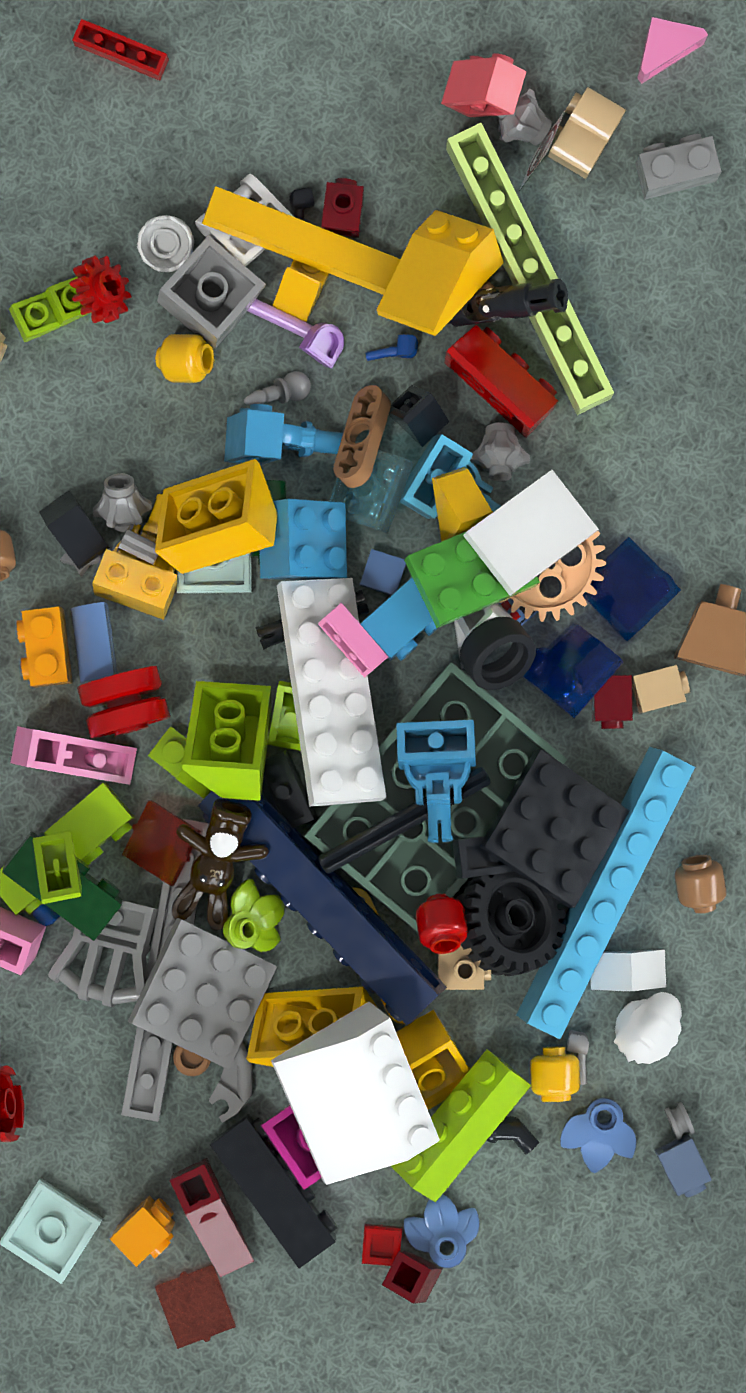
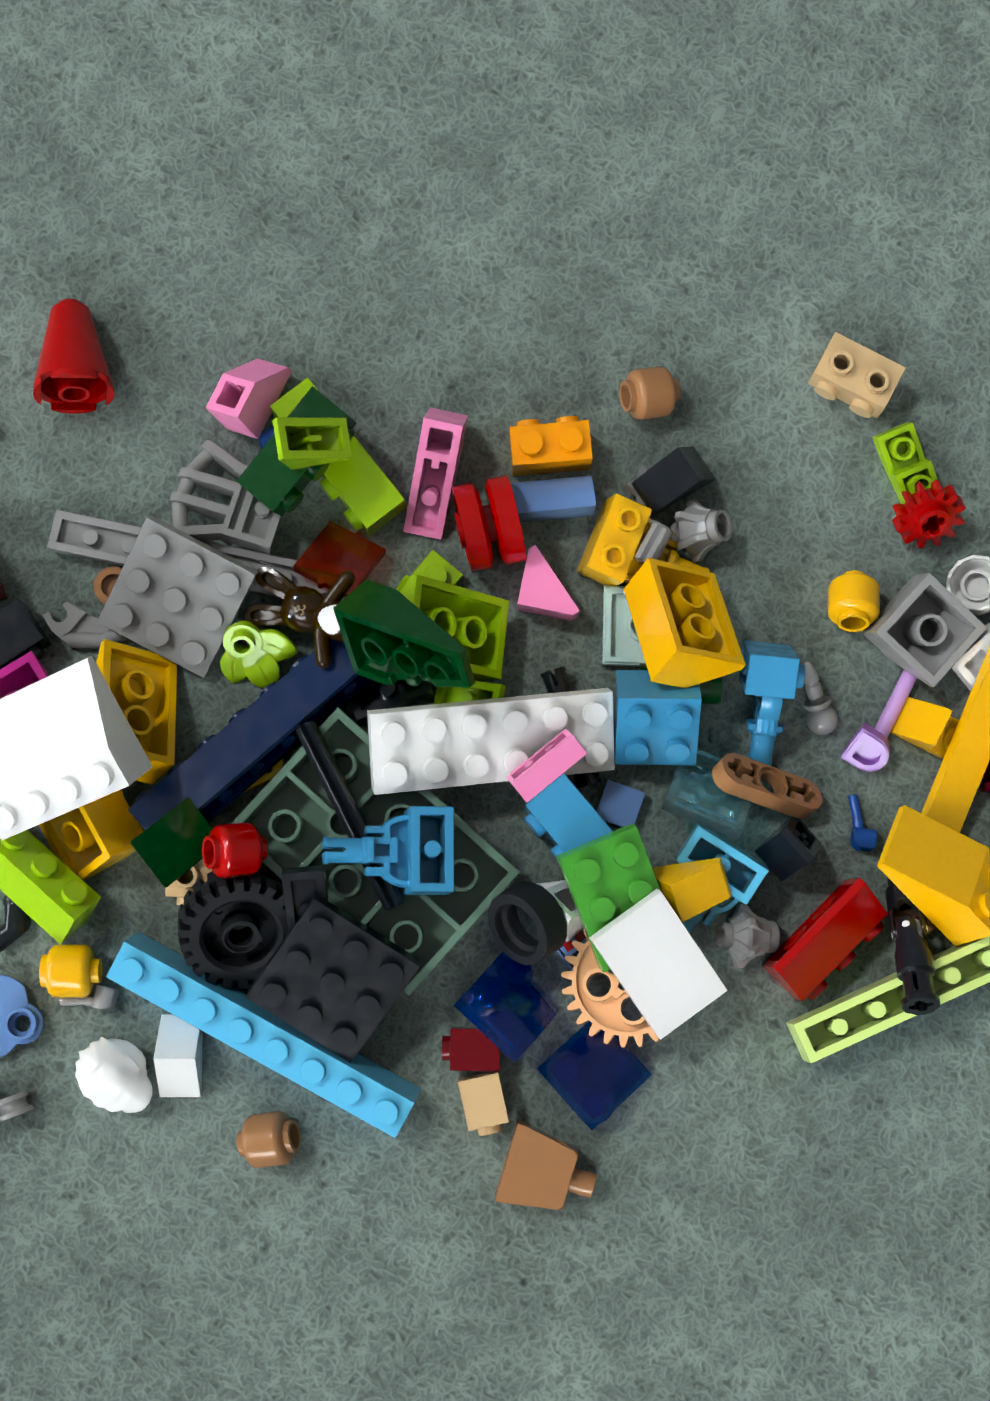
camera: 90 degrees right, 5 degrees down
(184, 650) = (542, 590): none -> bright pink slope
(247, 780) = (397, 641): none -> dark green wedge
(435, 980) = (173, 842): none -> dark green sticker

